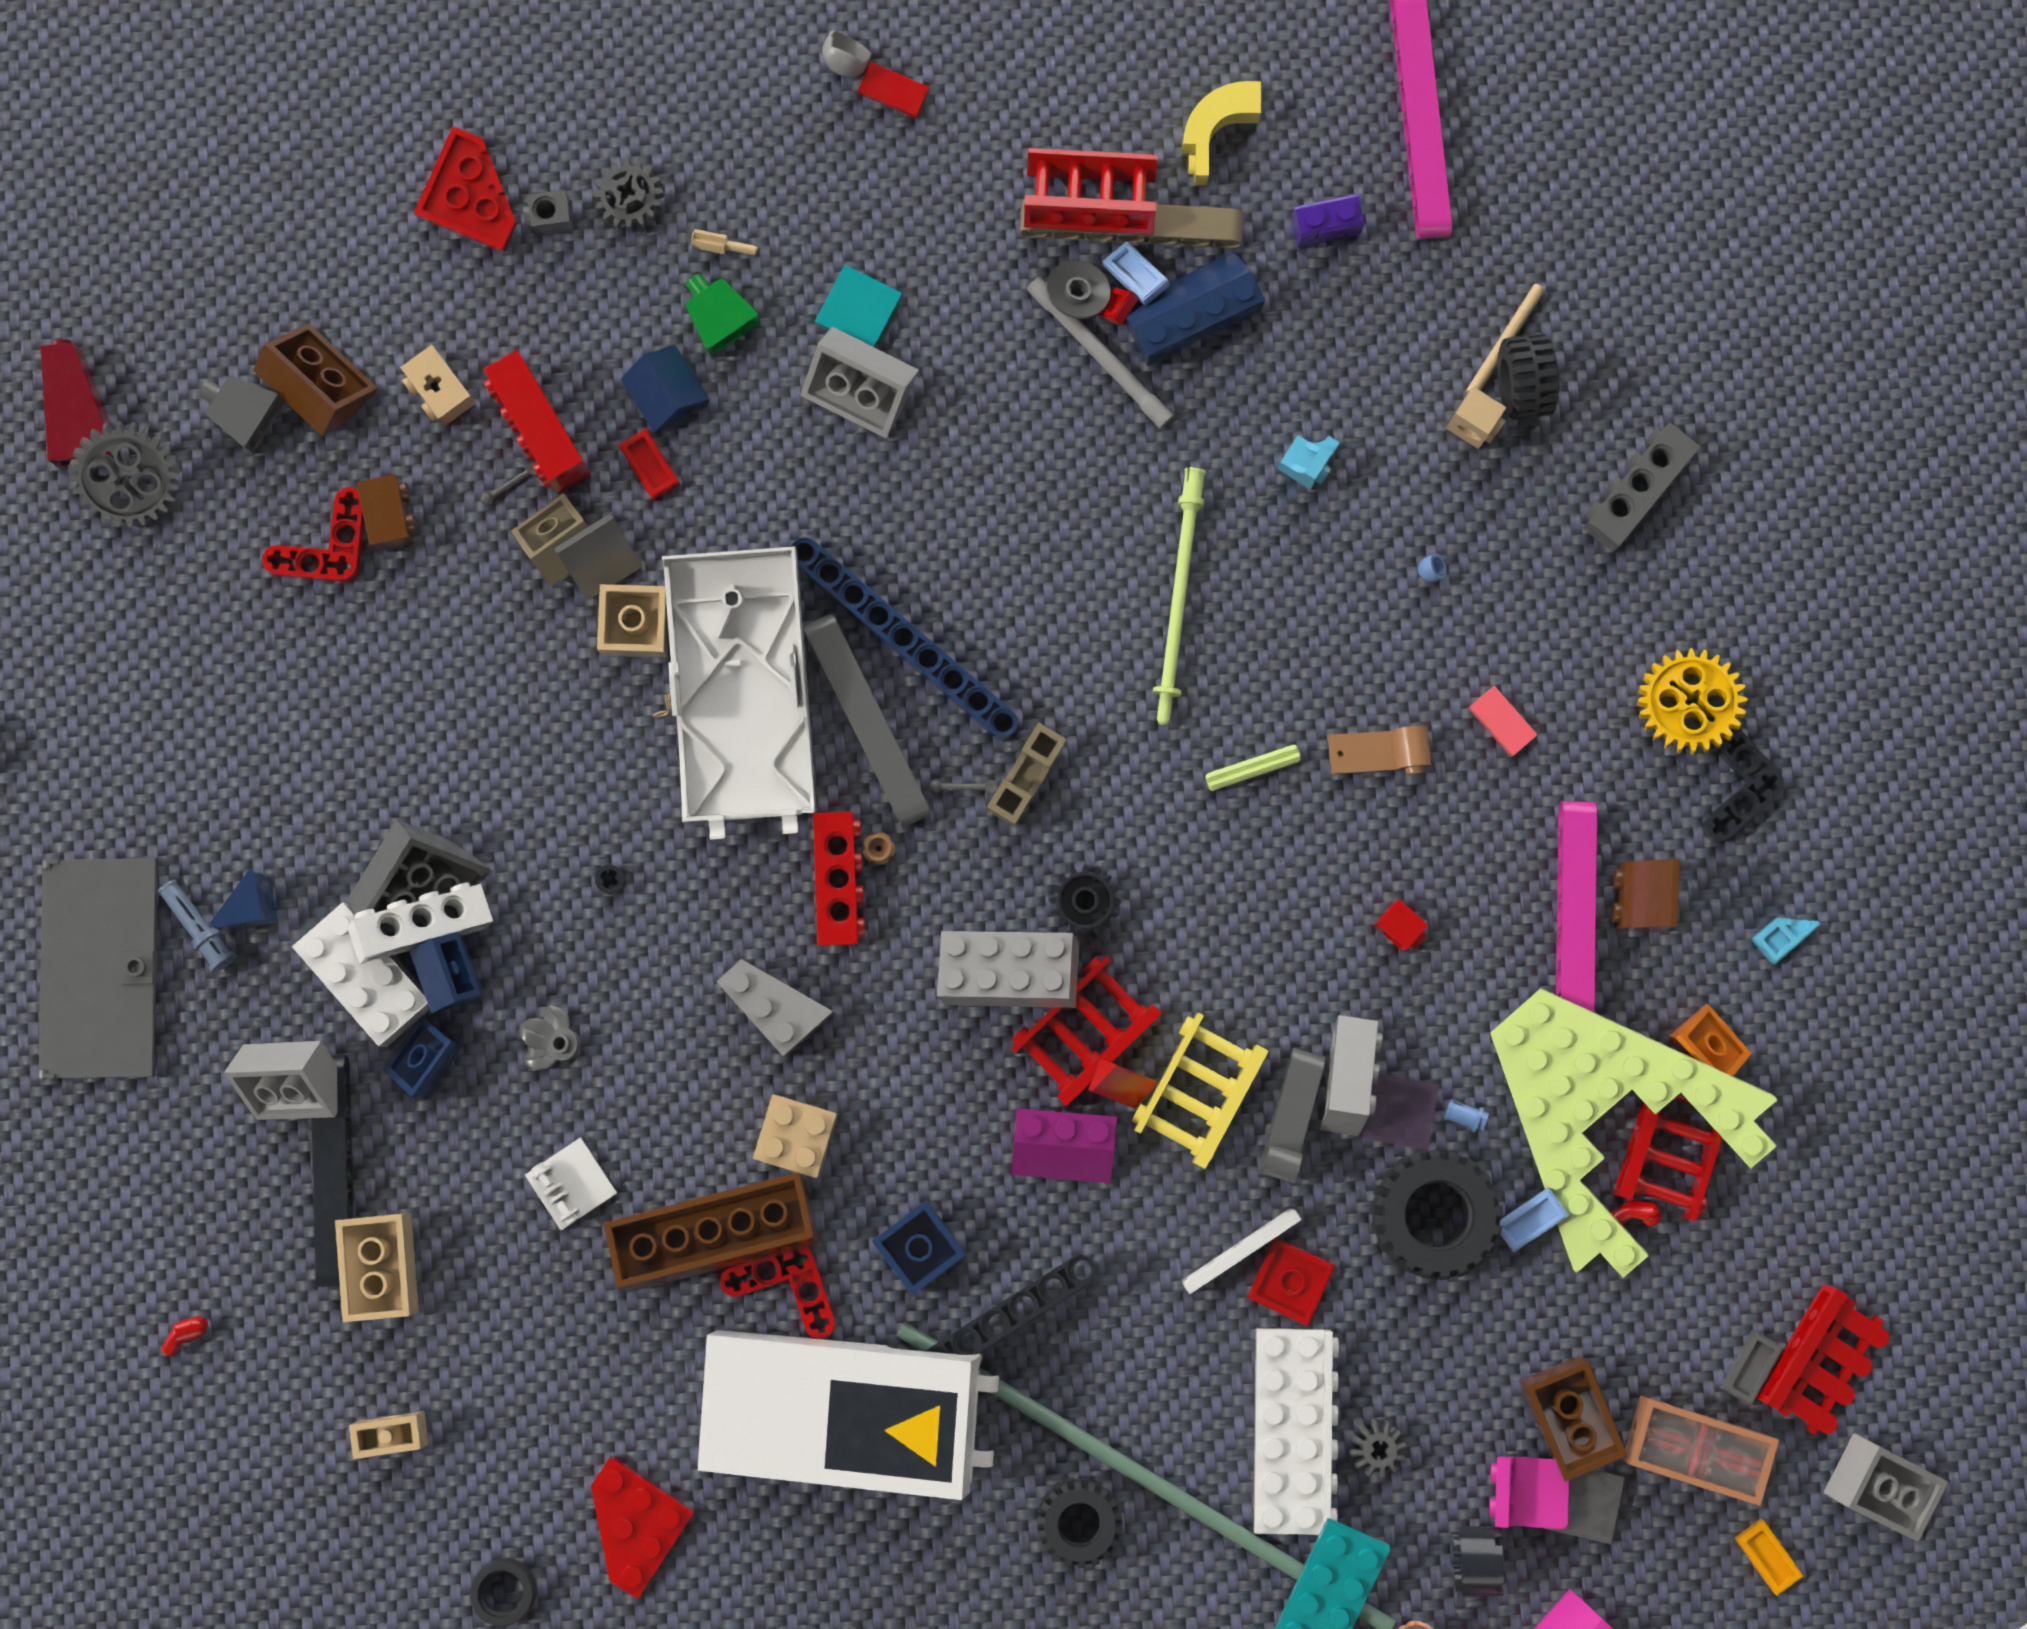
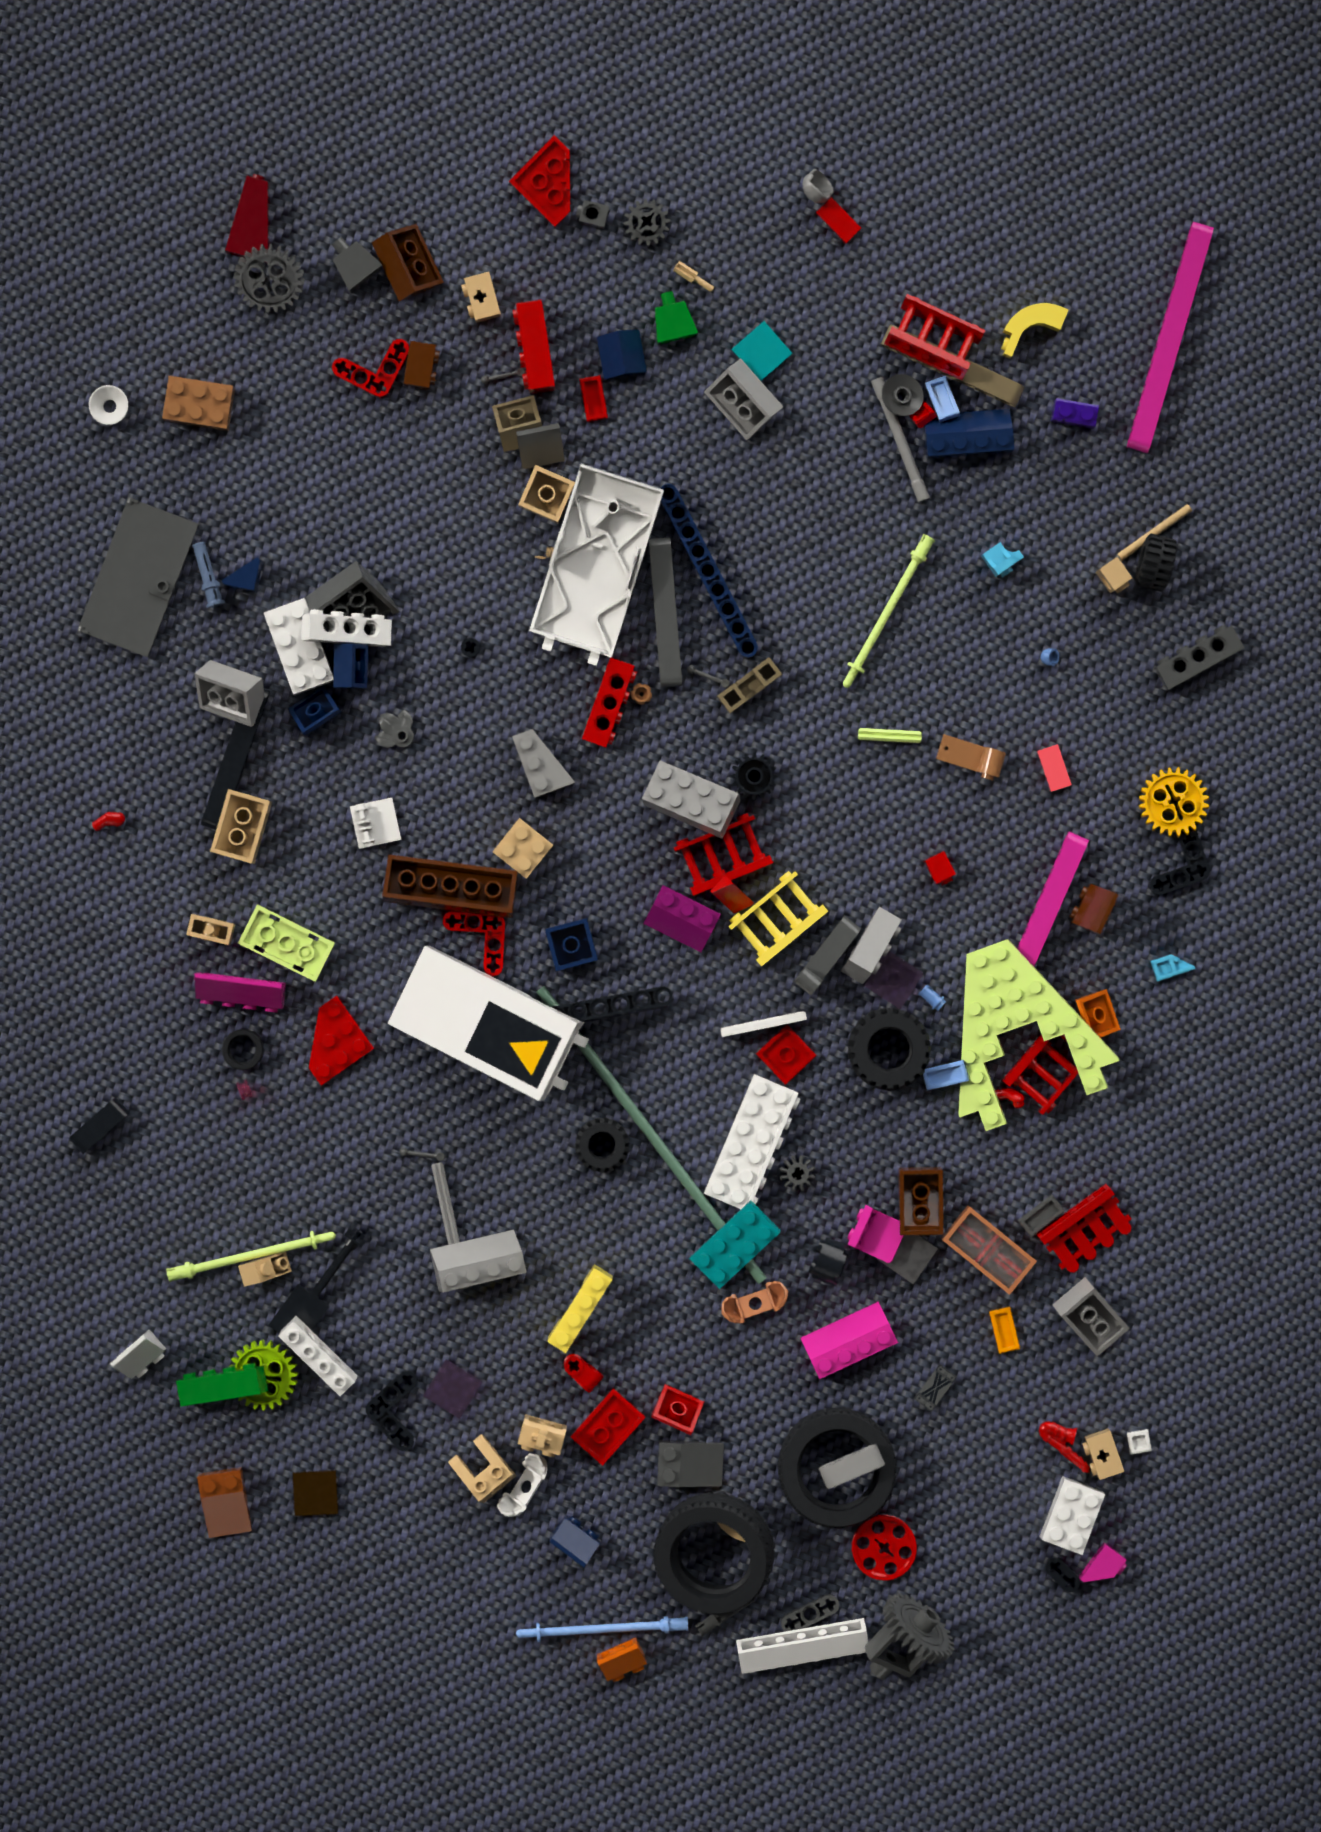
camera: 20 degrees right, 5 degrees up
(91, 688) = (198, 403): none -> medium nougat brick
(462, 1508) = (239, 990): none -> dark pink slope
(506, 1410) = (286, 943): none -> yellowish green piece

